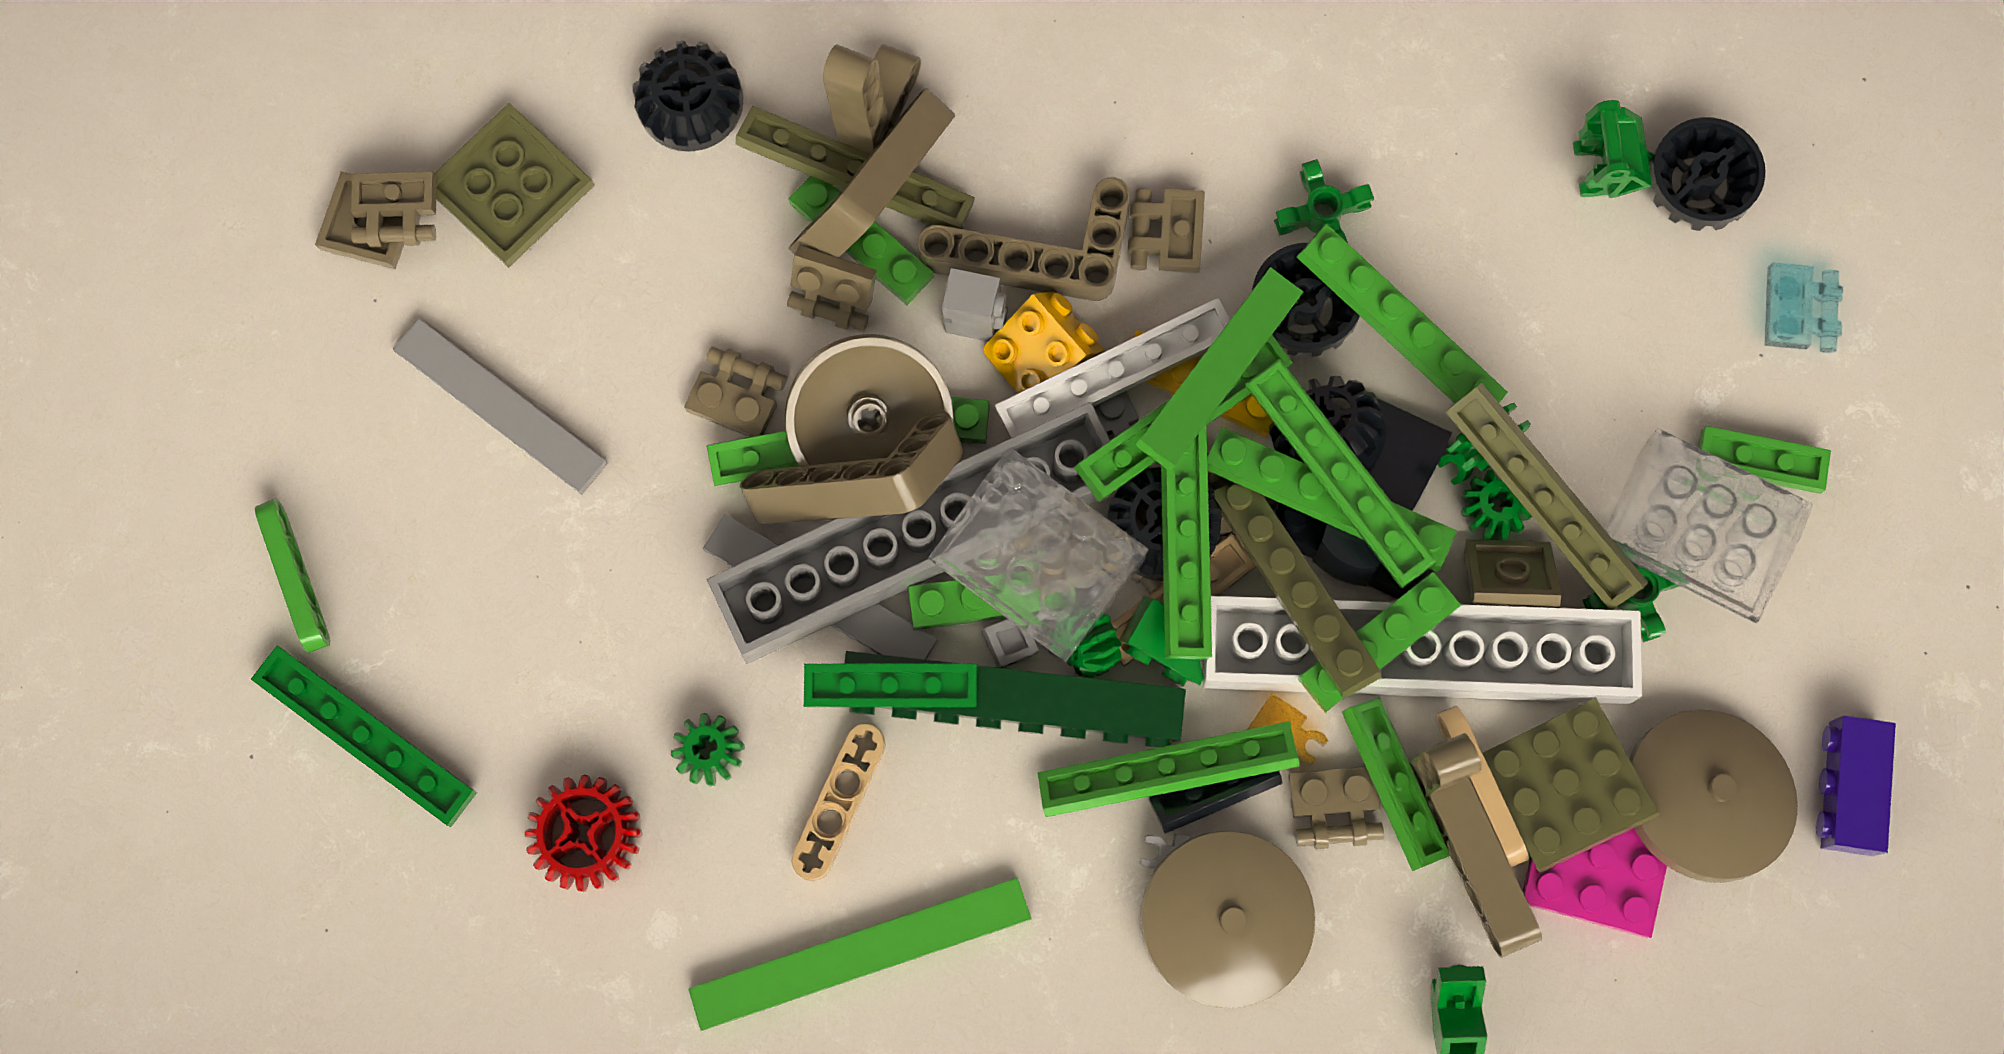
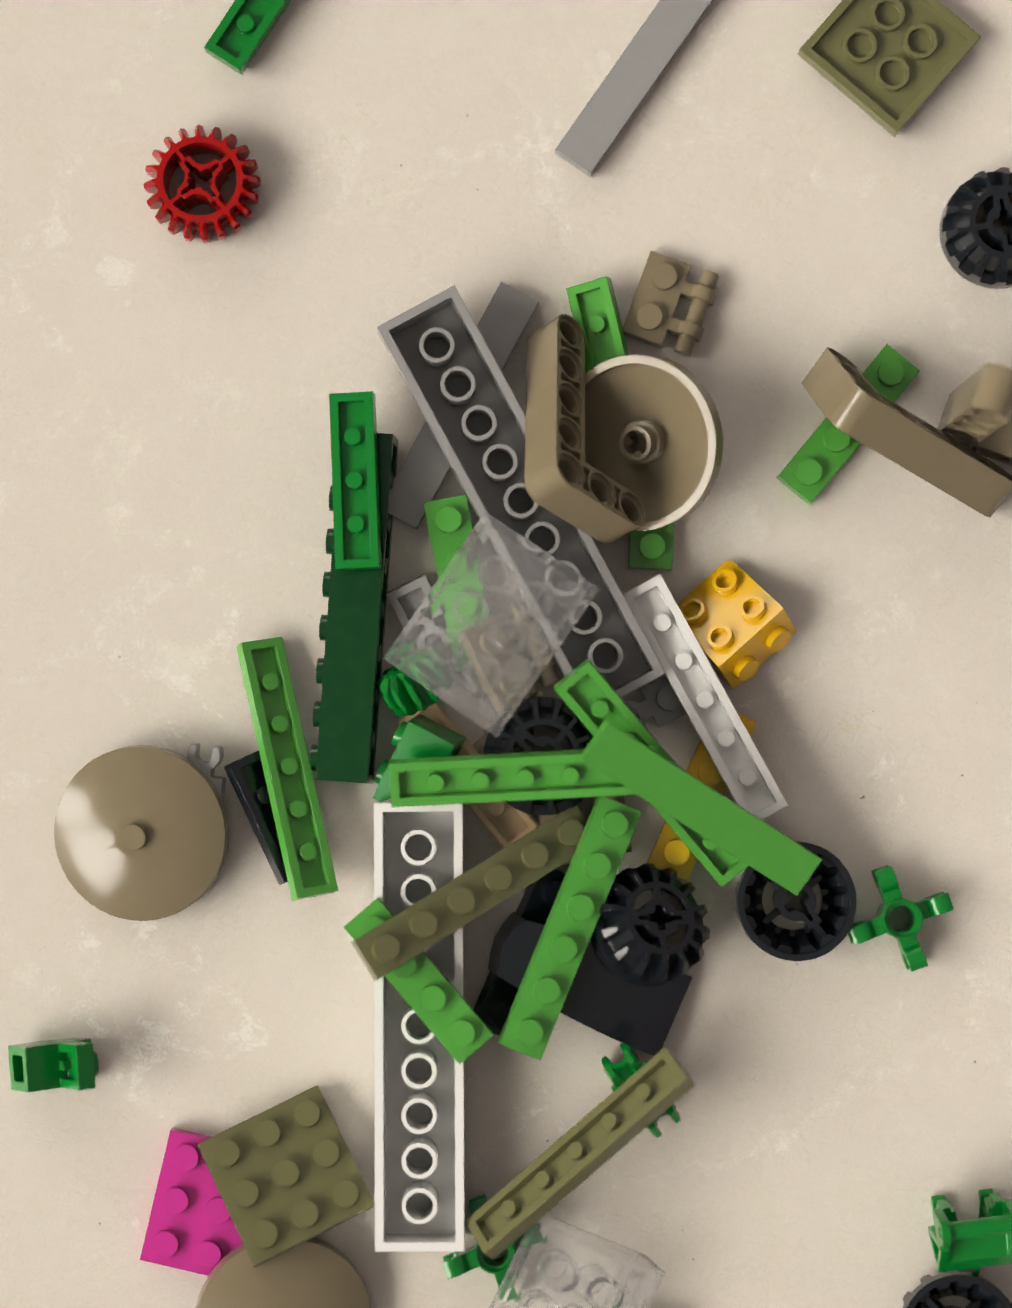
camera: 80 degrees right, 10 degrees up
(697, 740) = (304, 291): green gear -> none
(834, 279) = (795, 389): dark tan plate -> none
(834, 800) = (246, 435): tan beam -> none
(838, 162) = (925, 396): olive plate -> none
(859, 954) = (96, 469): bright green tile -> none
(973, 305) = (769, 546): light grey brick -> none
(1040, 255) = (831, 615): dark tan beam -> none
(1180, 230) = (870, 764): dark tan plate -> none
(1278, 711) = (350, 879): clear yellow plate -> none
(1335, 793) = (274, 940): dark tan plate -> none
(1341, 473) = (592, 936): bright green tile -> none
(1395, 317) = (773, 998): bright green plate -> none
(1396, 784) = (284, 1001): bright green tile -> none
(1453, 723) = (284, 1088): tan beam -> none
(1473, 845) = (274, 1056): dark tan beam -> none
(1480, 508) = (572, 1089): green gear -> none
(1512, 573) = (503, 1119): dark tan plate -> none

